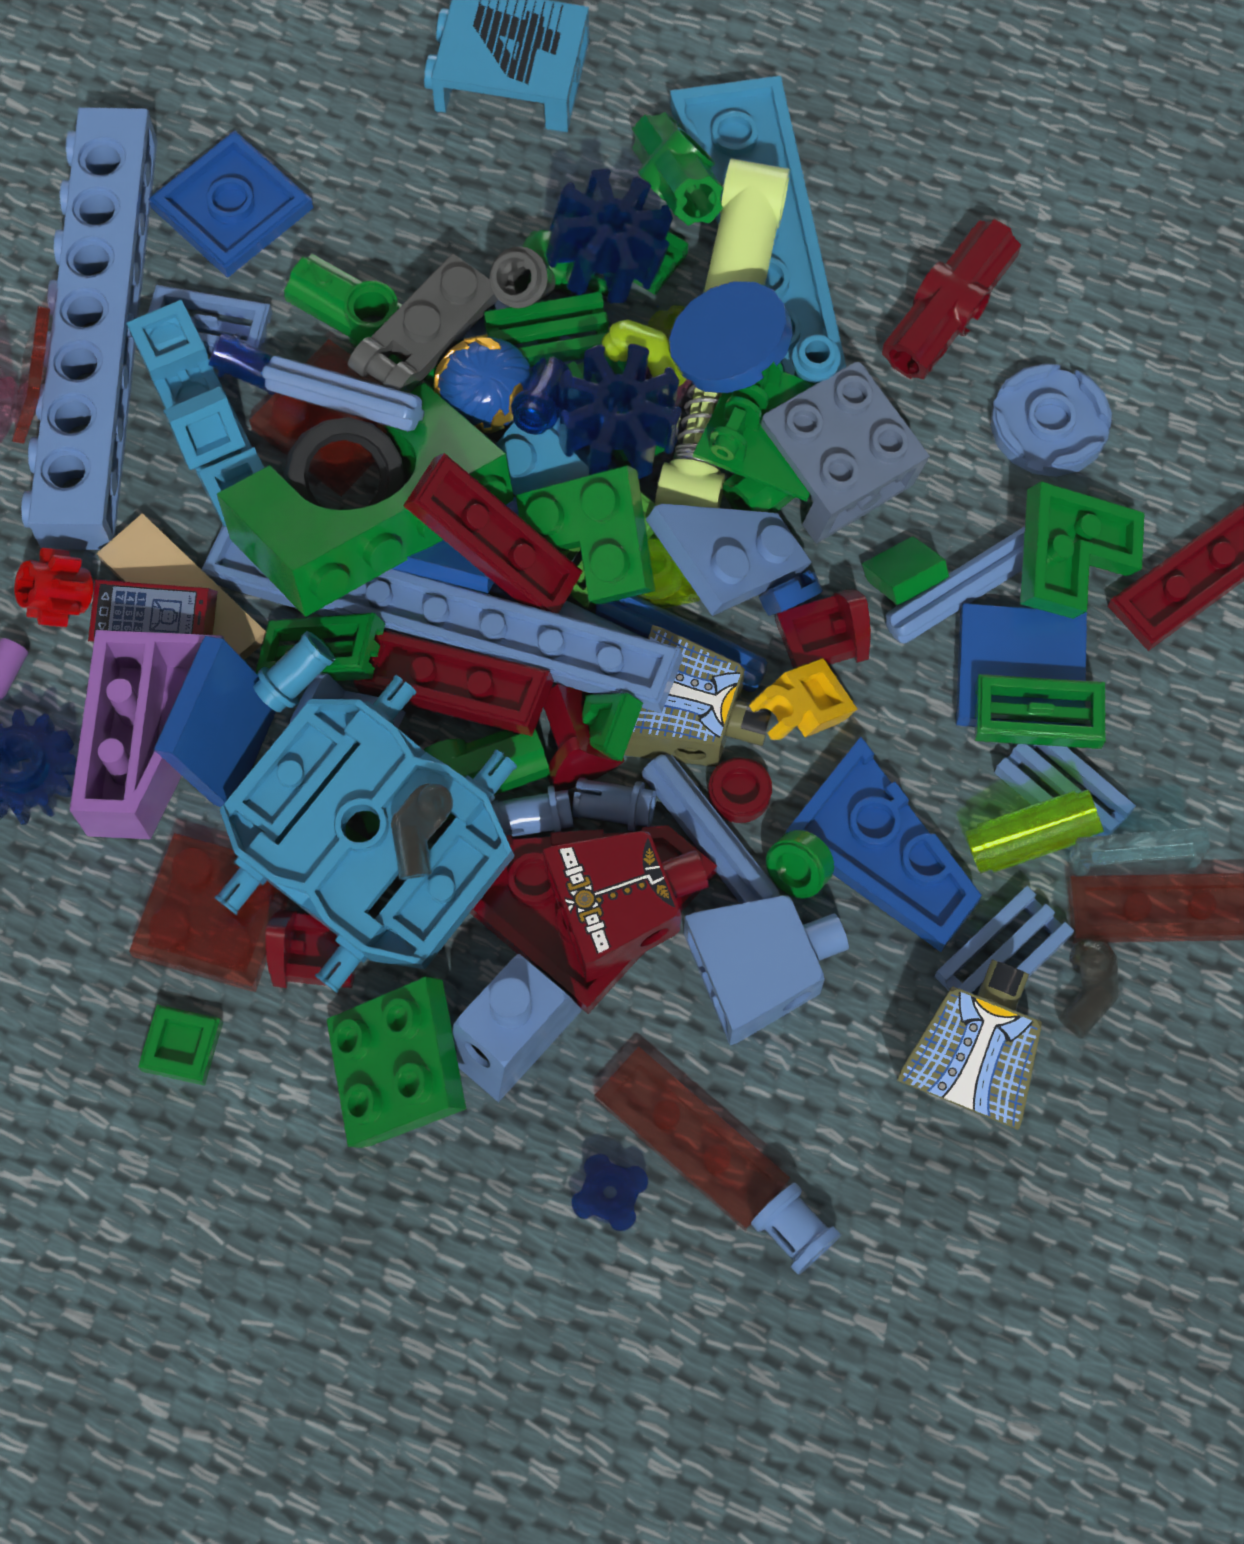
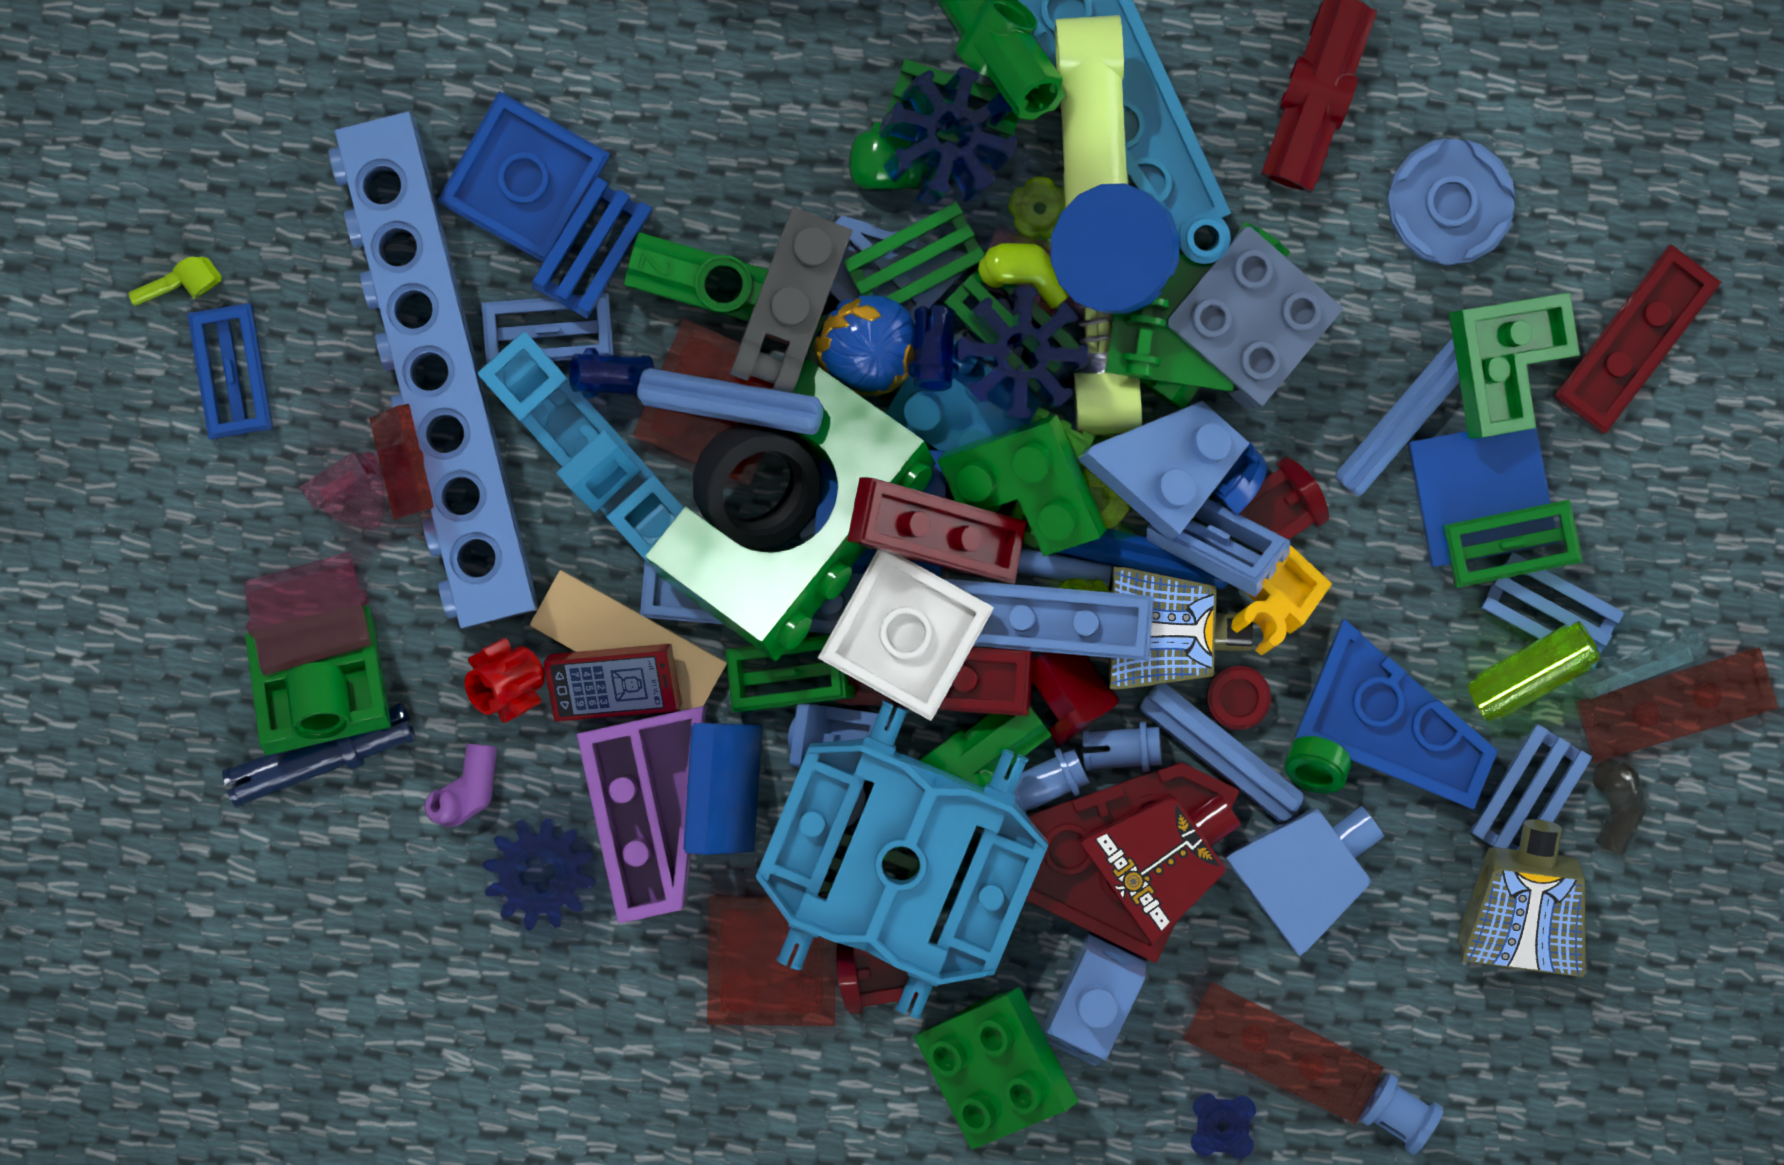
camera: 15 degrees left, 20 degrees up
(180, 1044) = (784, 1096): green tile -> none
(261, 258) = (618, 203): none -> blue tile
(293, 672) = (771, 728): dark azure pin -> none
(415, 824) = (954, 857): clear smoke arm -> none
(436, 622) = (905, 633): none -> white tile
(510, 277) = (875, 220): dark grey cone -> none
(611, 721) = (1103, 685): green tile -> none
(762, 637) = (1218, 555): none -> medium blue tile
(905, 570) = (1344, 422): green tile -> none

